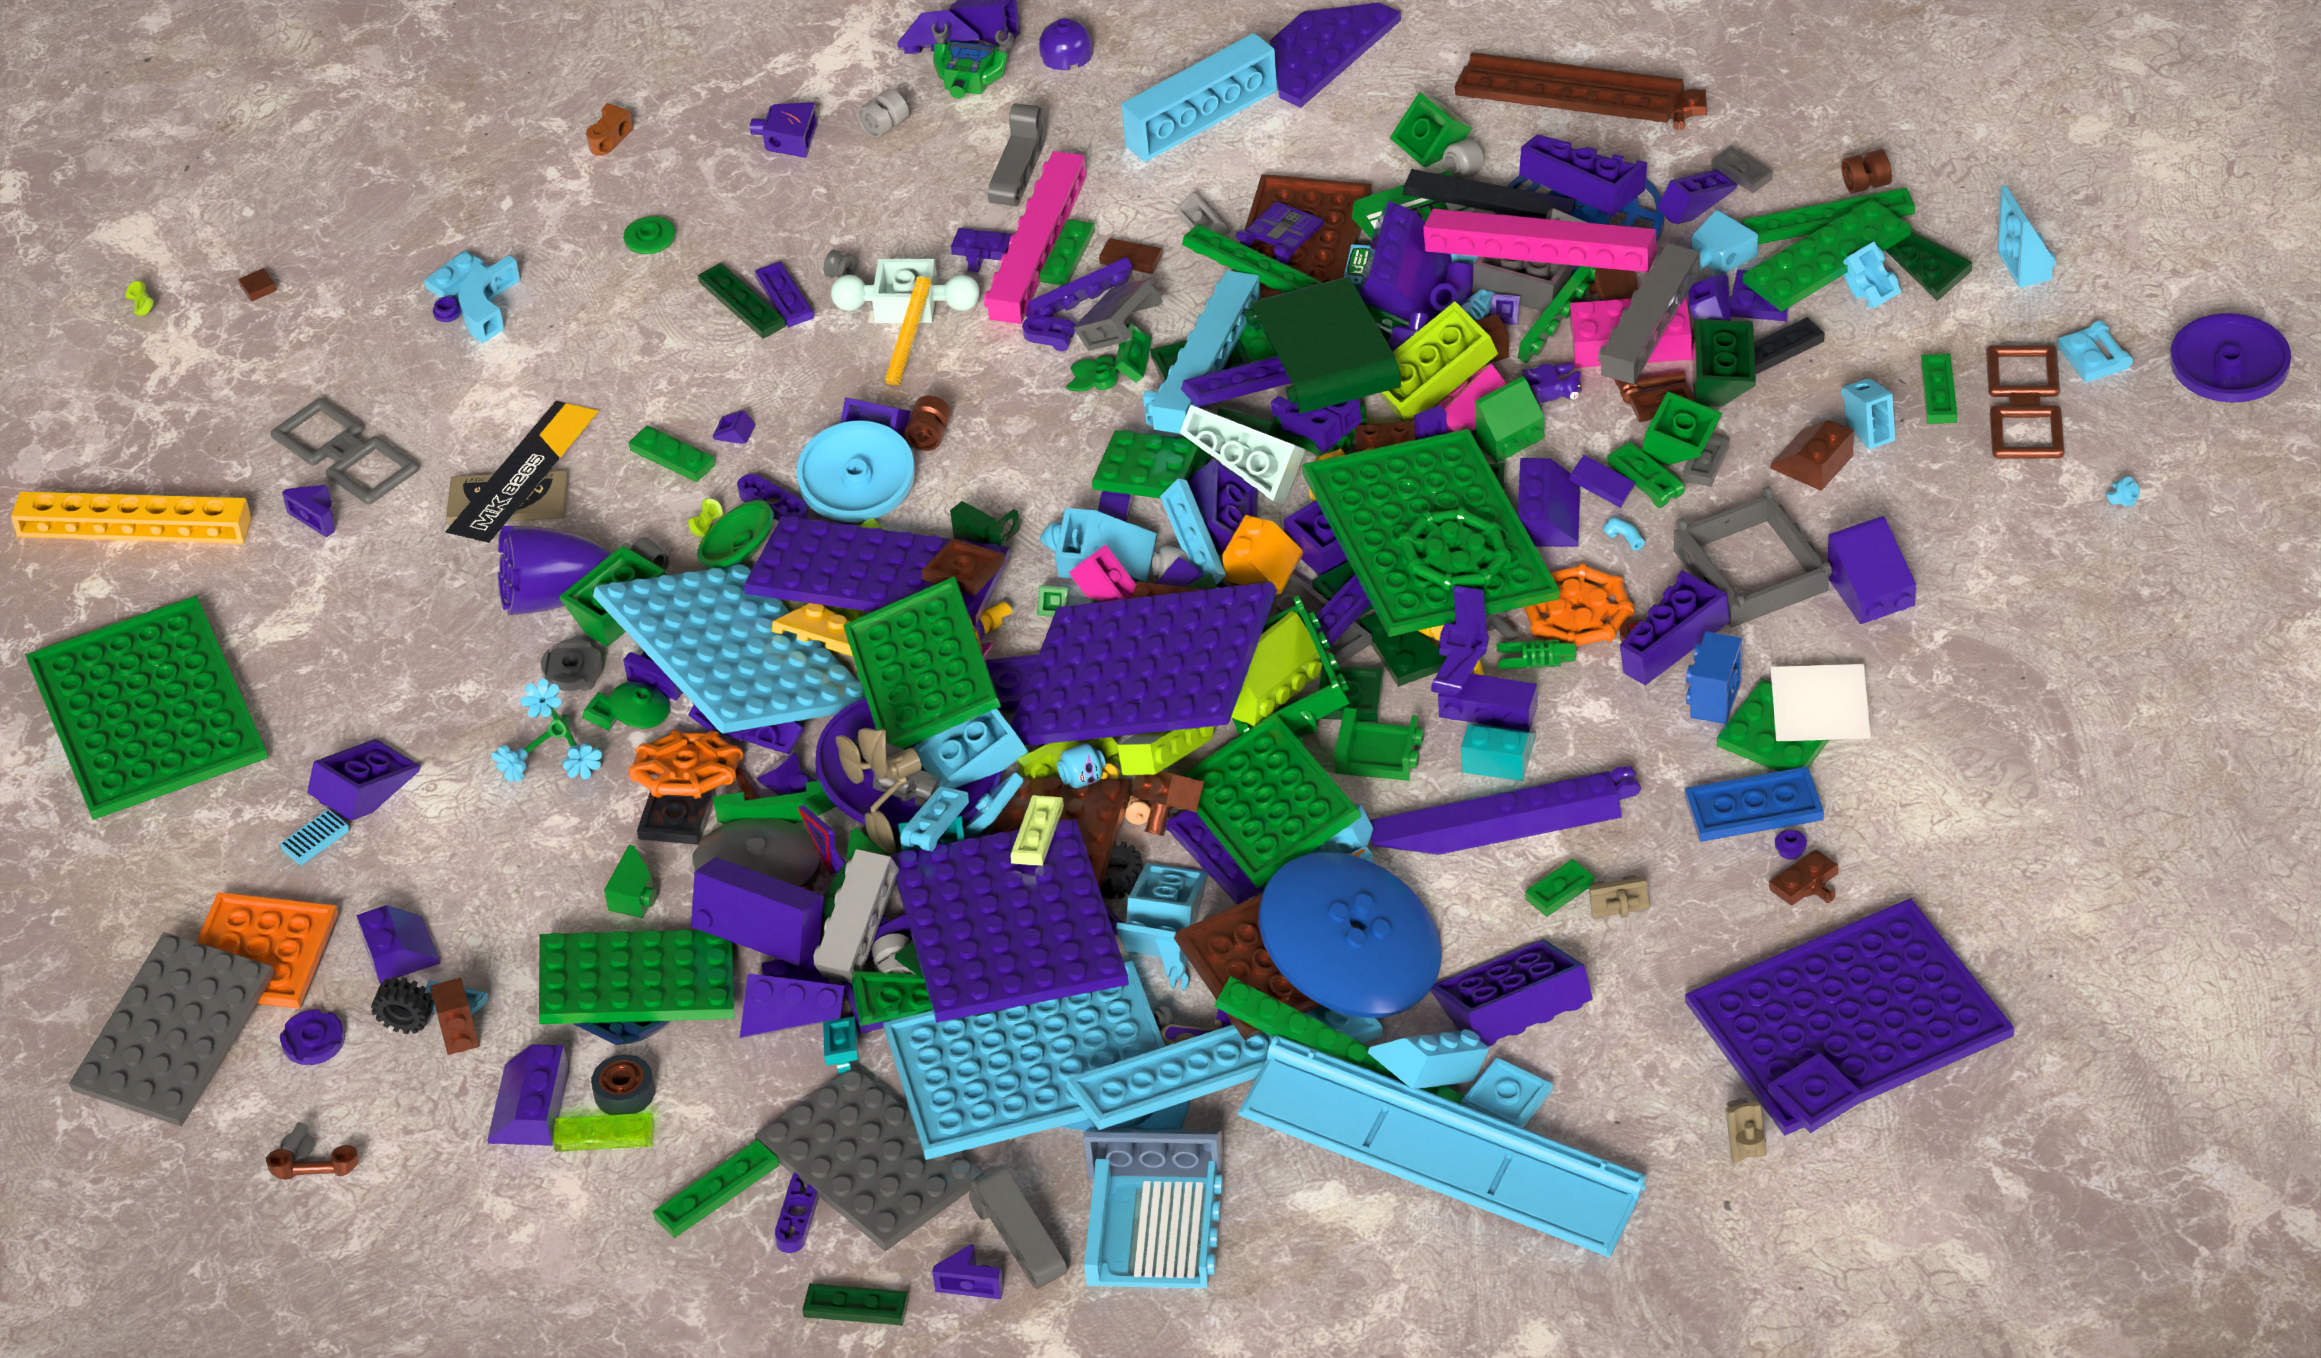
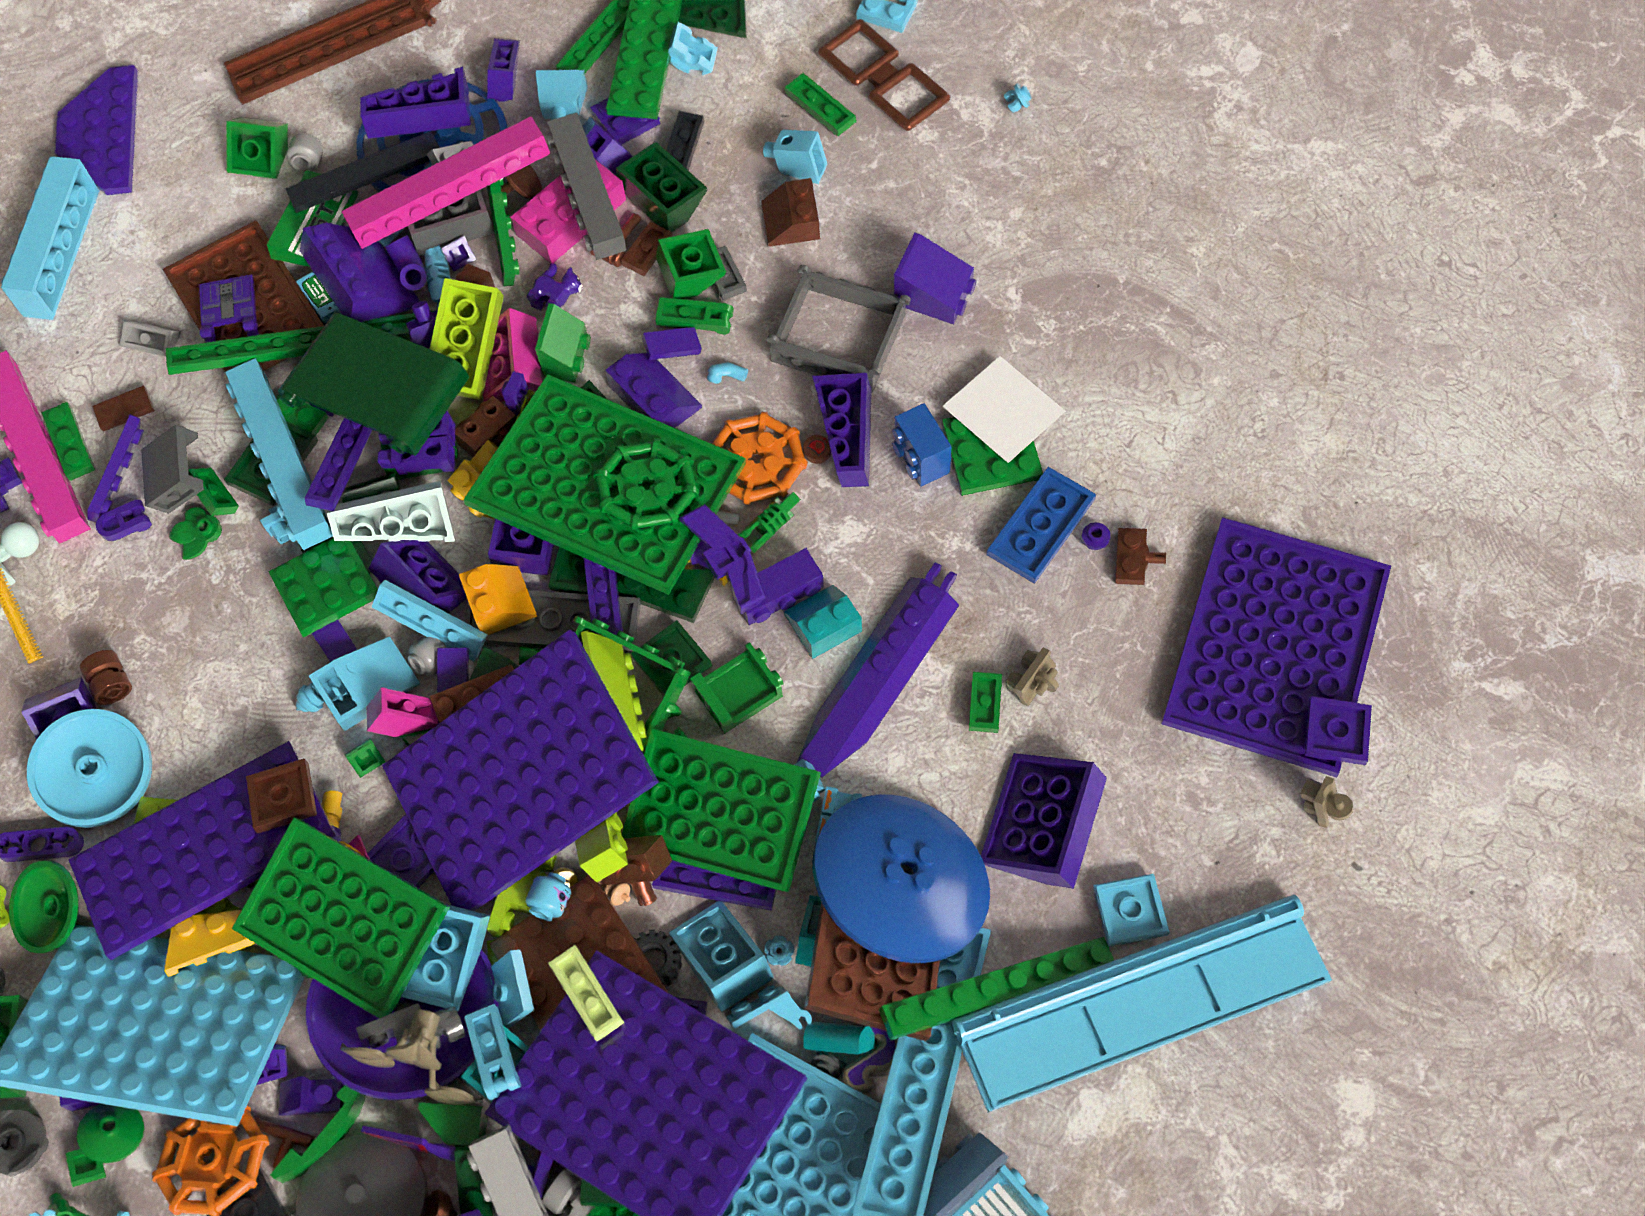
camera: 45 degrees left, 20 degrees up
(979, 527) = (247, 743): dark green piece -> none
(1188, 1002) = (838, 1038): none -> teal brick
(1433, 1058) = (1061, 932): medium azure slope -> none
(1742, 169) = (512, 26): flat silver plate -> none

